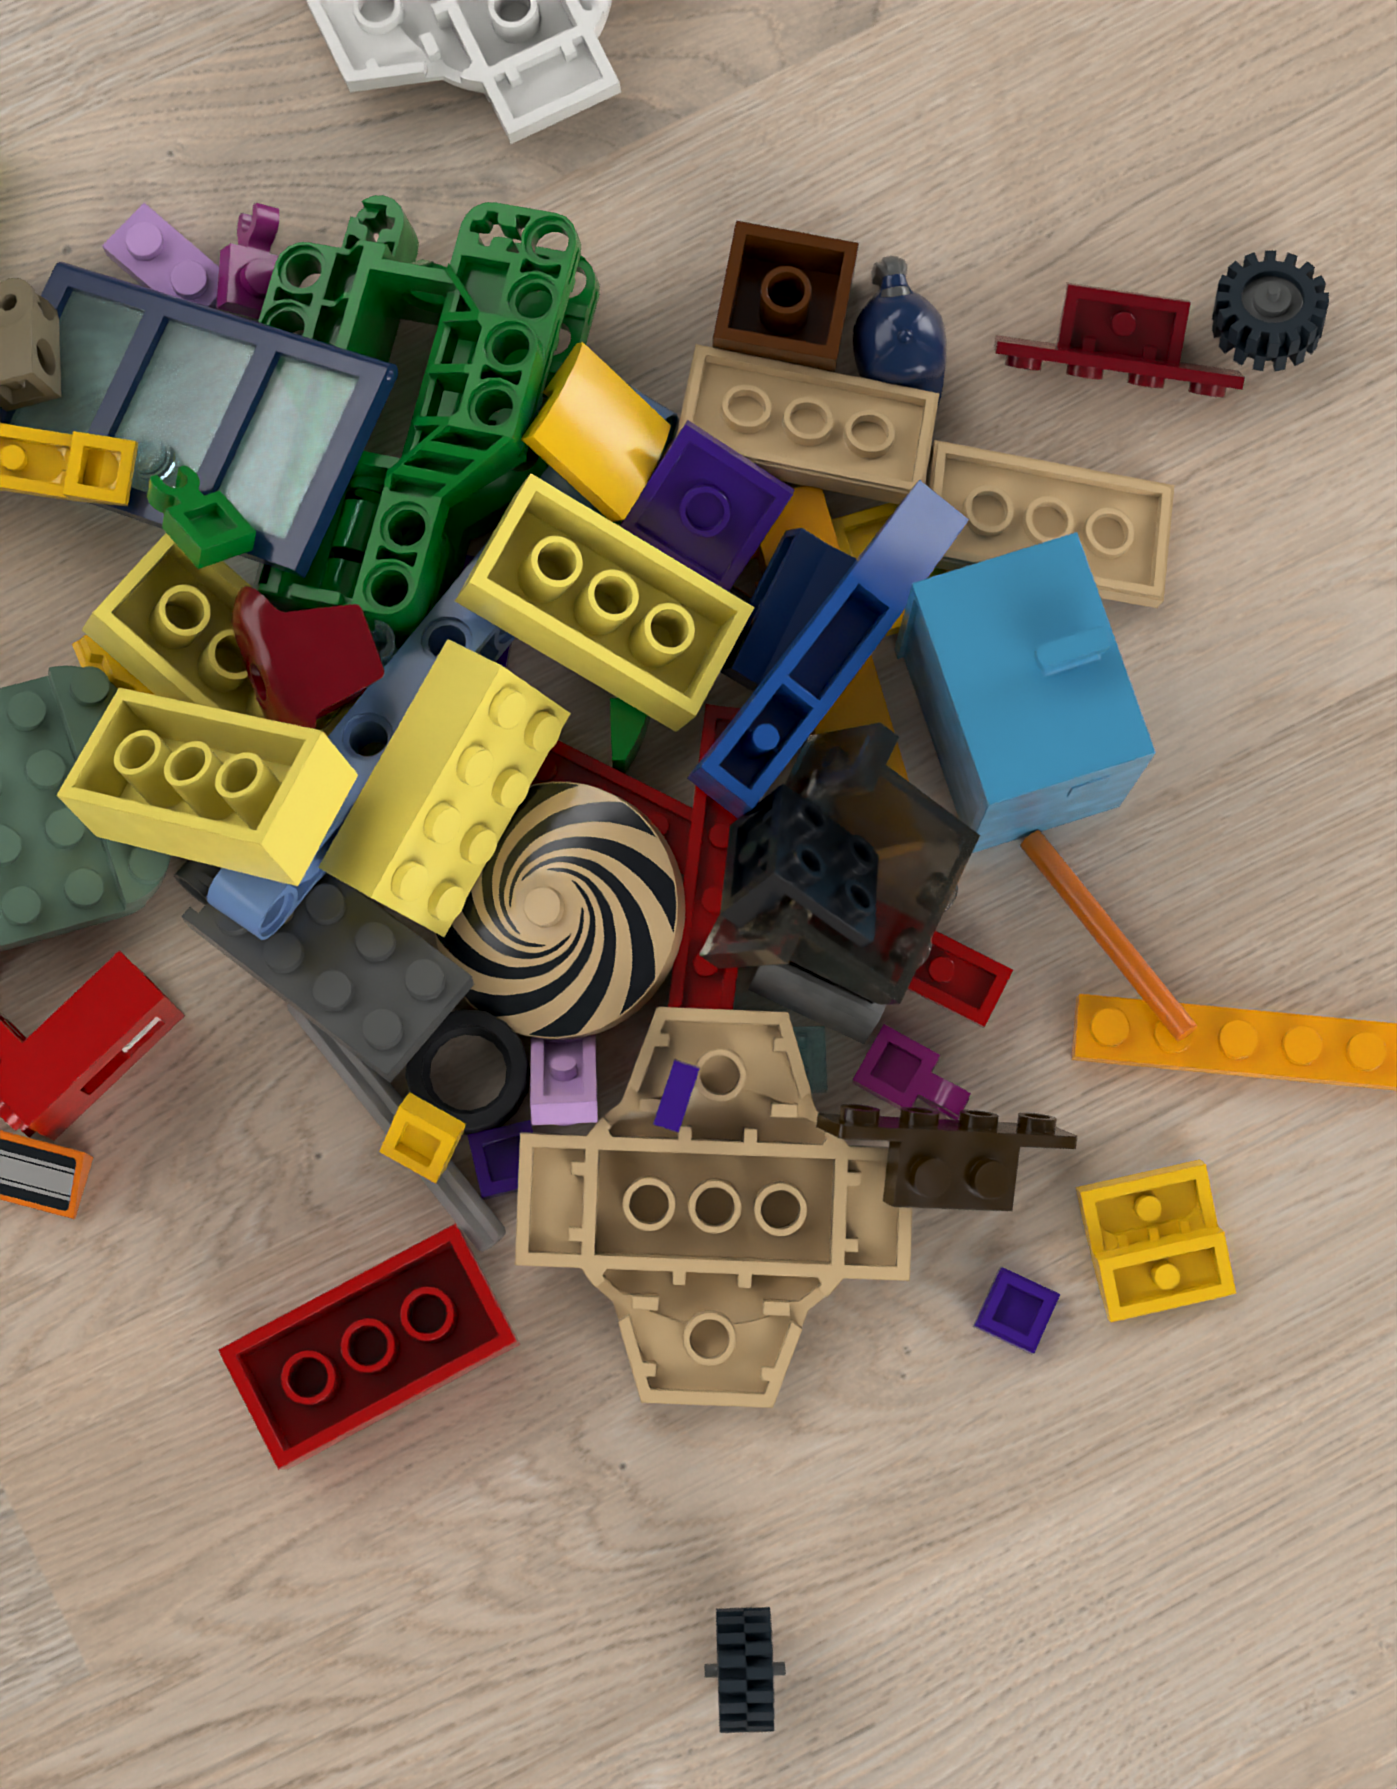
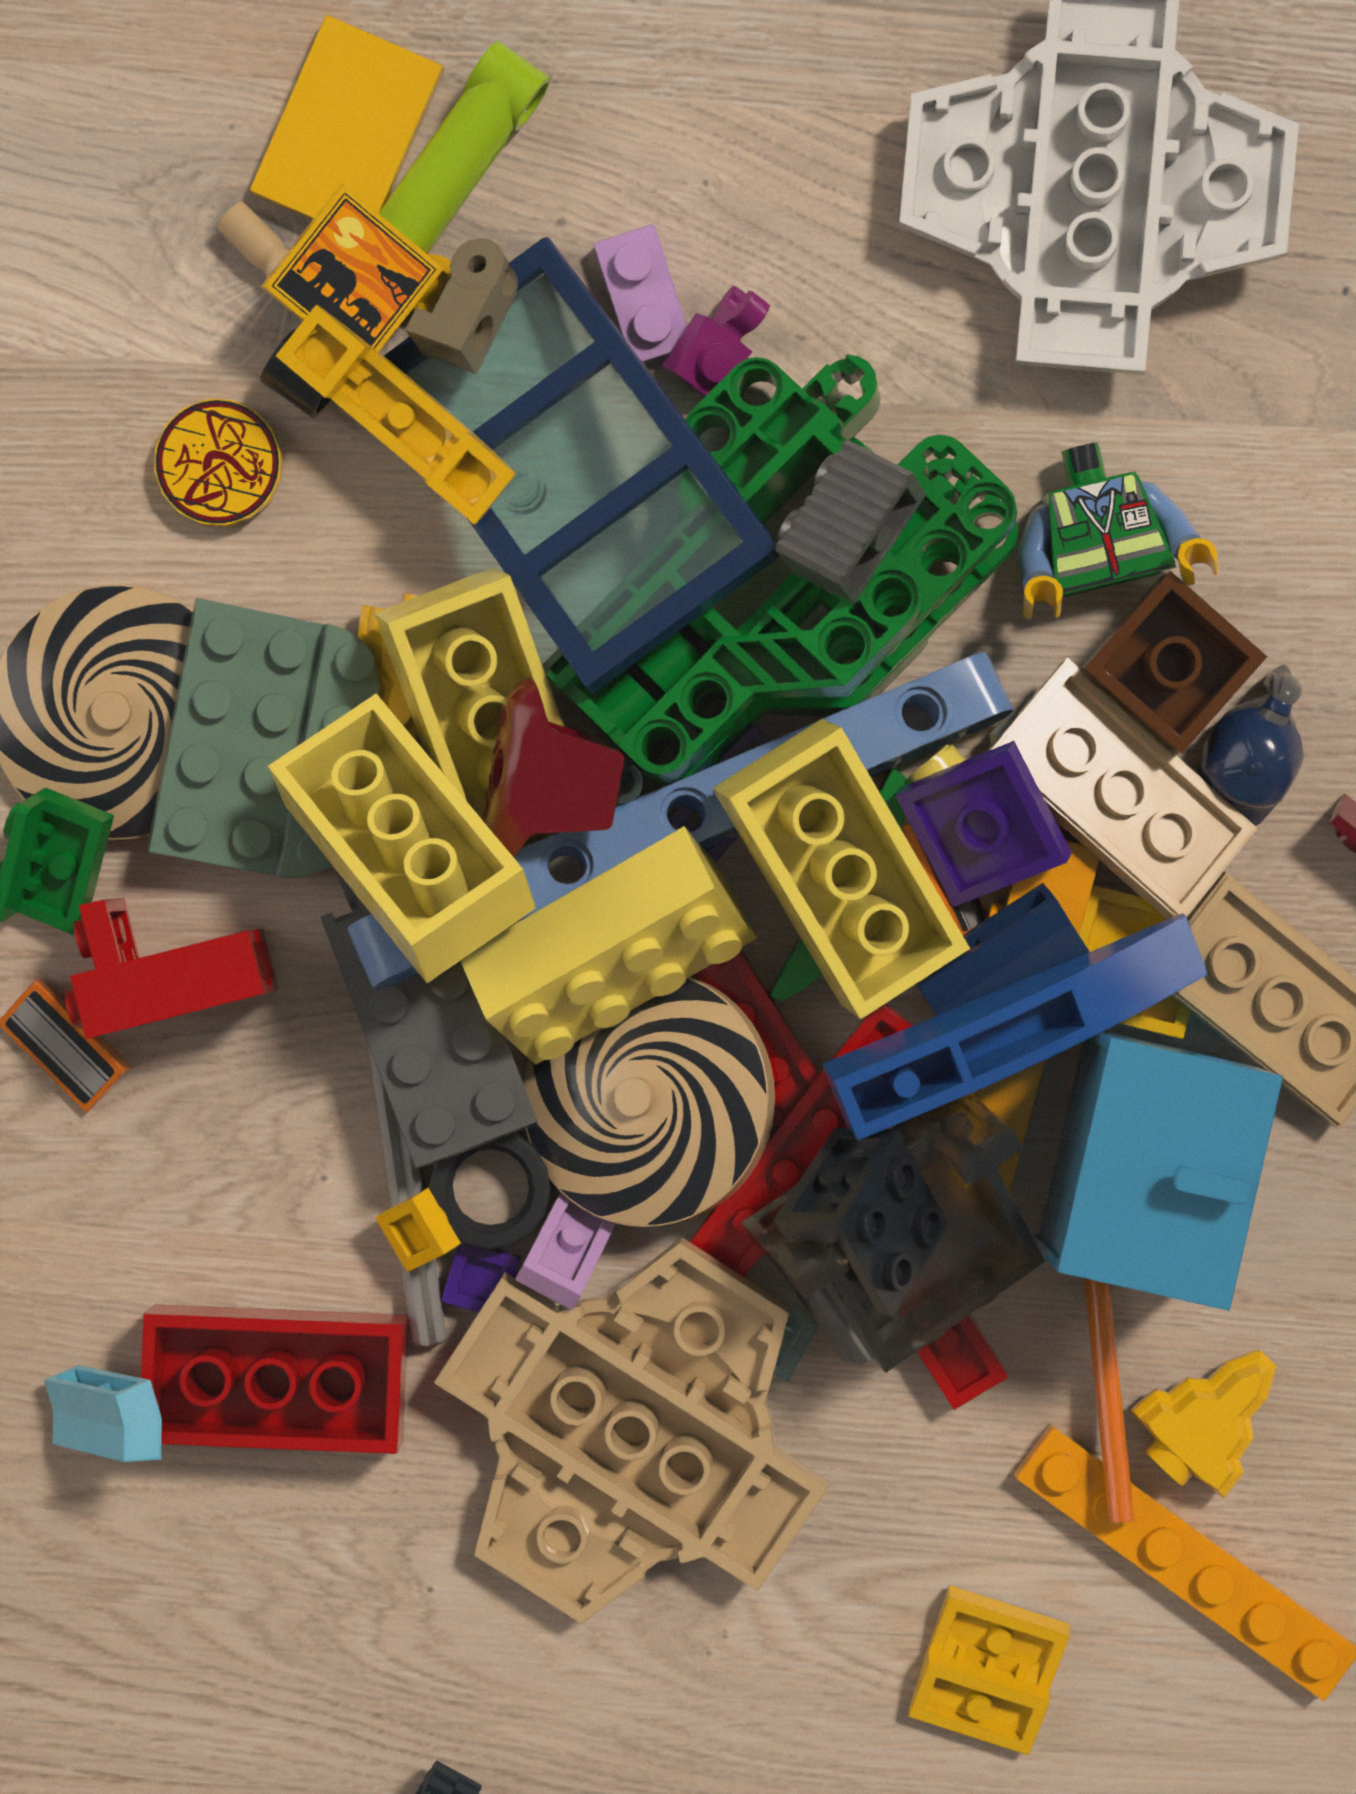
camera: 30 degrees right, 10 degrees up
(200, 524) = (528, 598): green plate -> none
(236, 1463) = (105, 1414): none -> medium azure piece
(437, 305) = (849, 520): none -> flat silver brick
(598, 433) = (928, 707): yellow slope -> none
(667, 234) = (1103, 534): none -> torso
(676, 1095) = (650, 1333): dark purple tile -> none
(901, 1072) = (861, 1406): magenta plate -> none
(947, 1160) = (853, 1511): dark brown bracket -> none
(1016, 1310) = (836, 1658): dark purple tile -> none
(1207, 913) = (1207, 1422): none -> yellow rock

